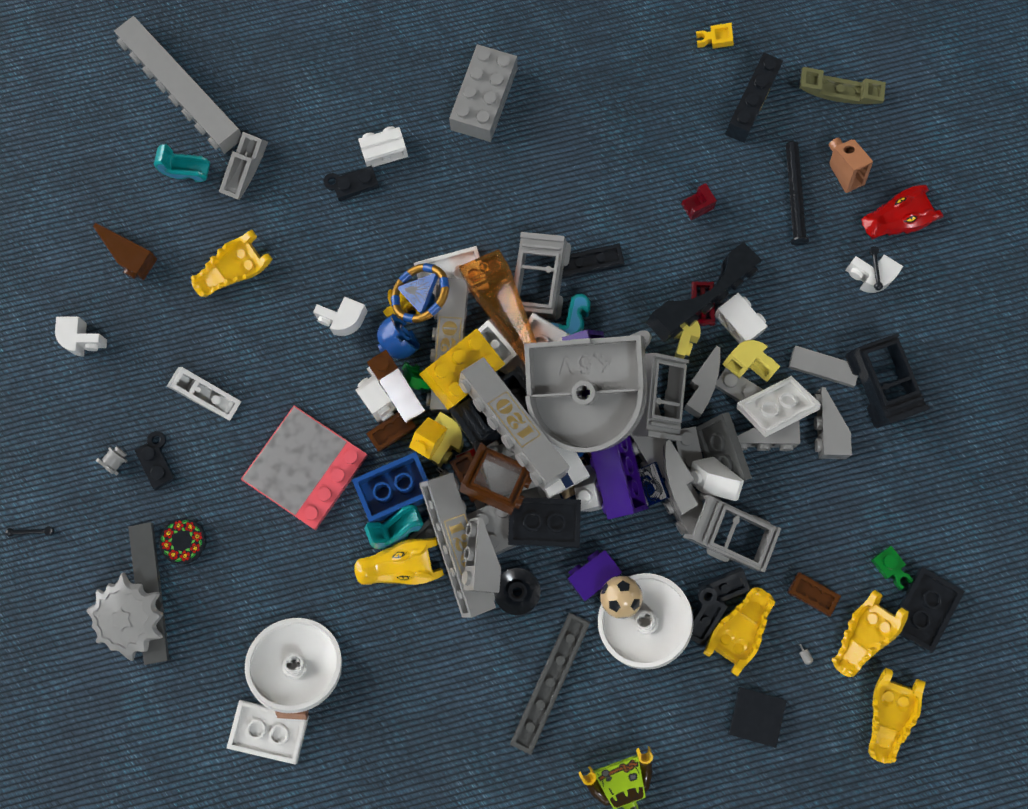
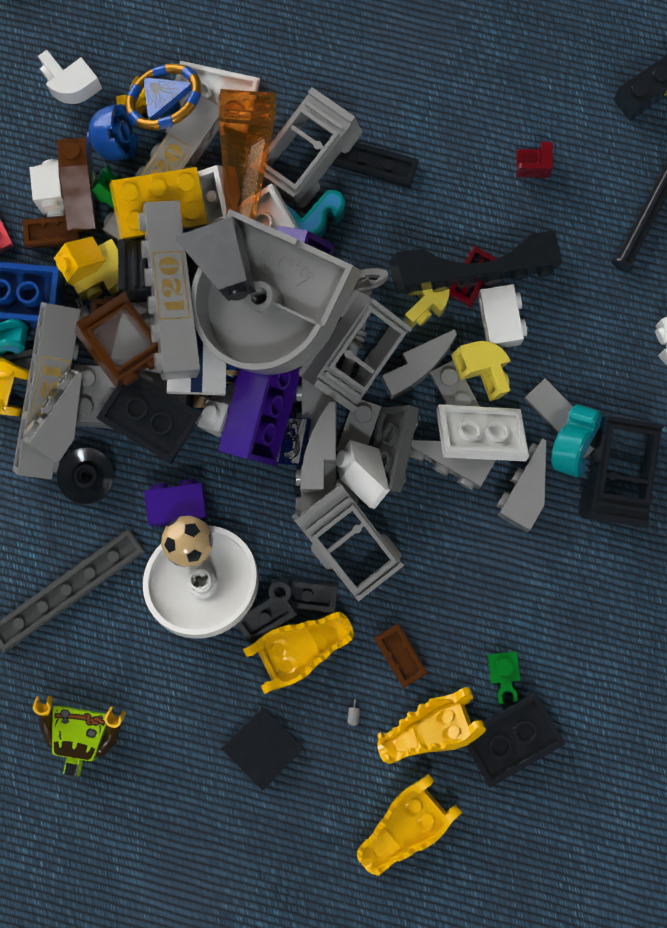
camera: 30 degrees right, 5 degrees up
(541, 380) = (221, 256): none -> slope
(844, 376) = (575, 440): none -> teal animal

